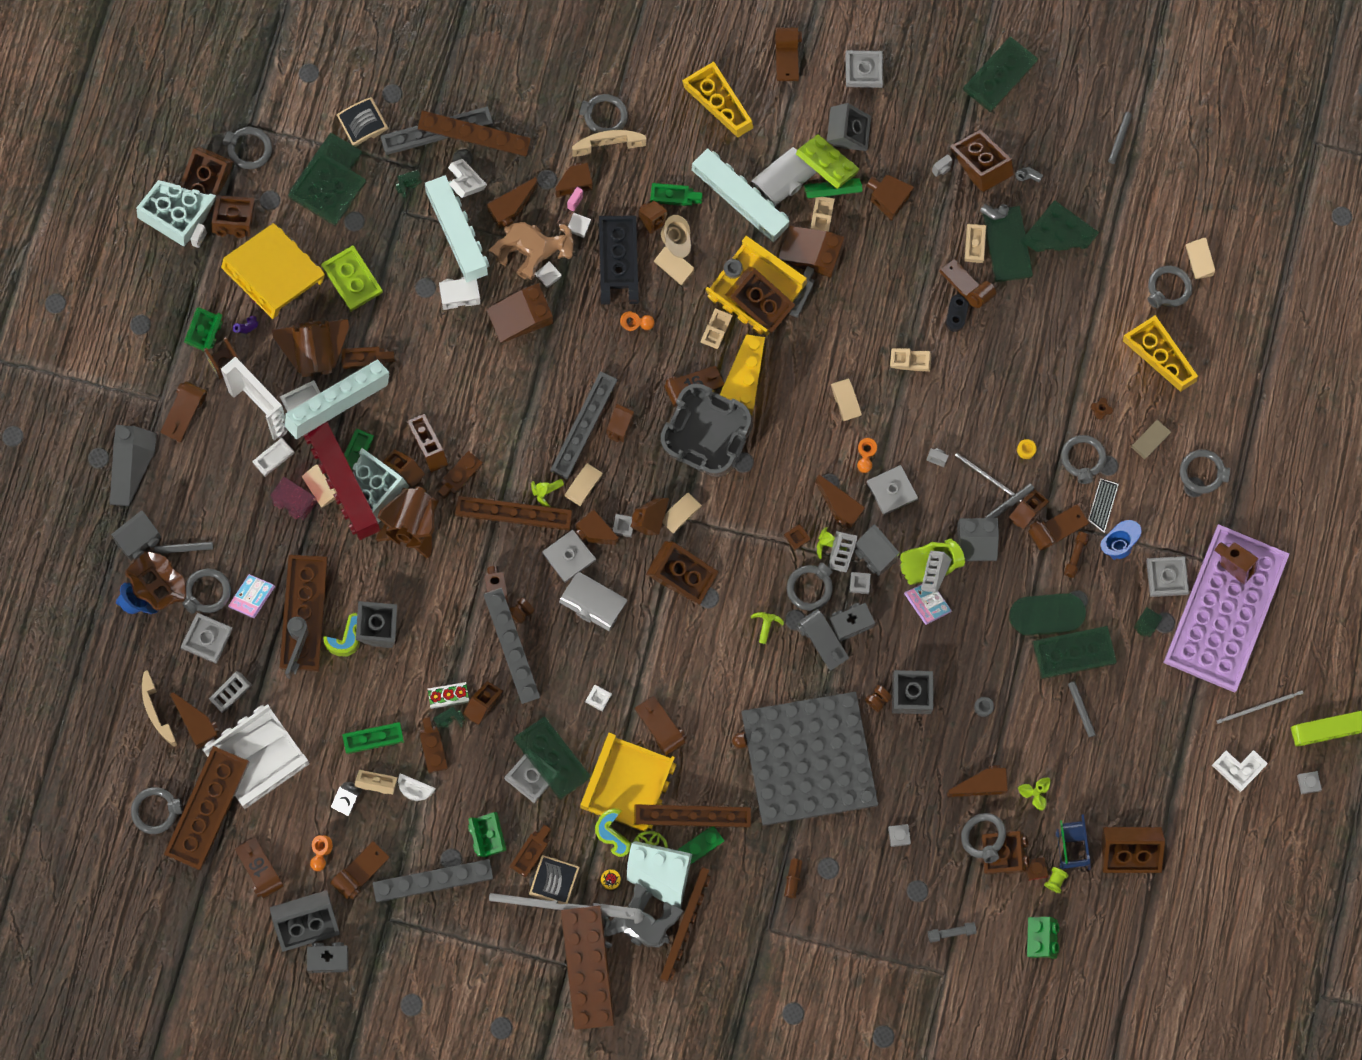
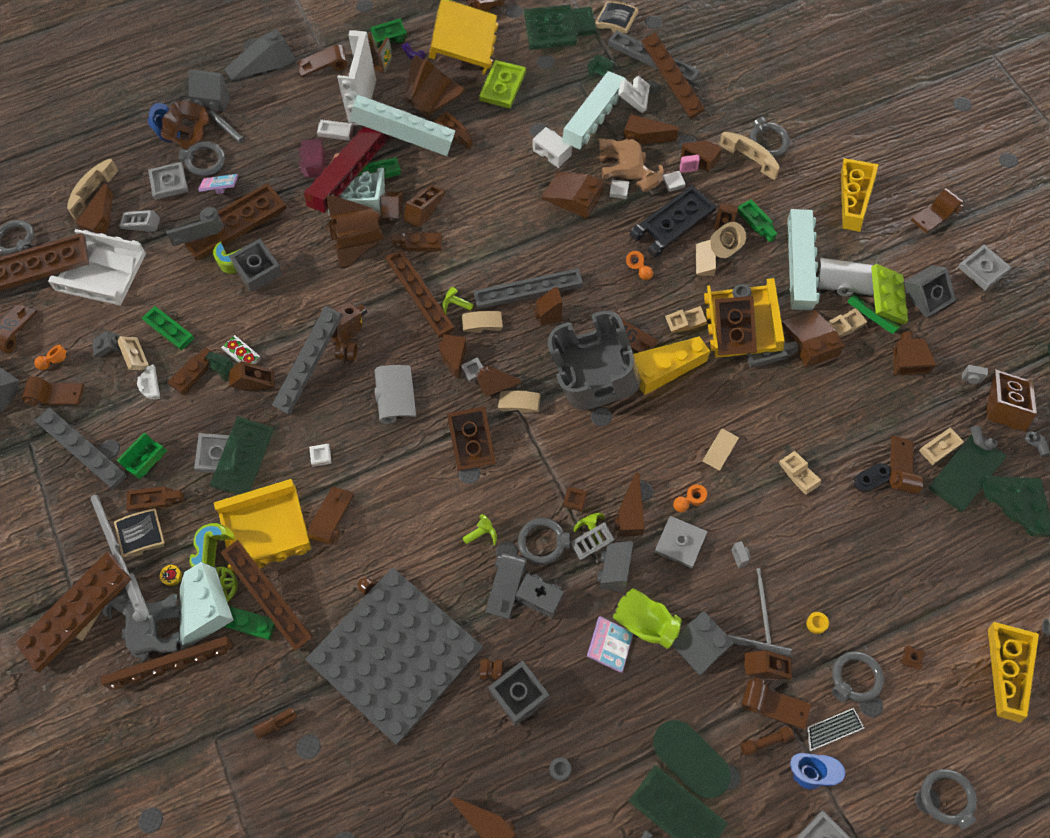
camera: 60 degrees right, 10 degrees down
(568, 556) = (418, 352): light grey plate -> none
(859, 583) = (579, 576): light grey plate -> none
(899, 835) = (382, 786): light grey plate -> none
(936, 565) = (641, 627): light grey slope -> none
(1151, 439) = (930, 724): dark tan tile -> none

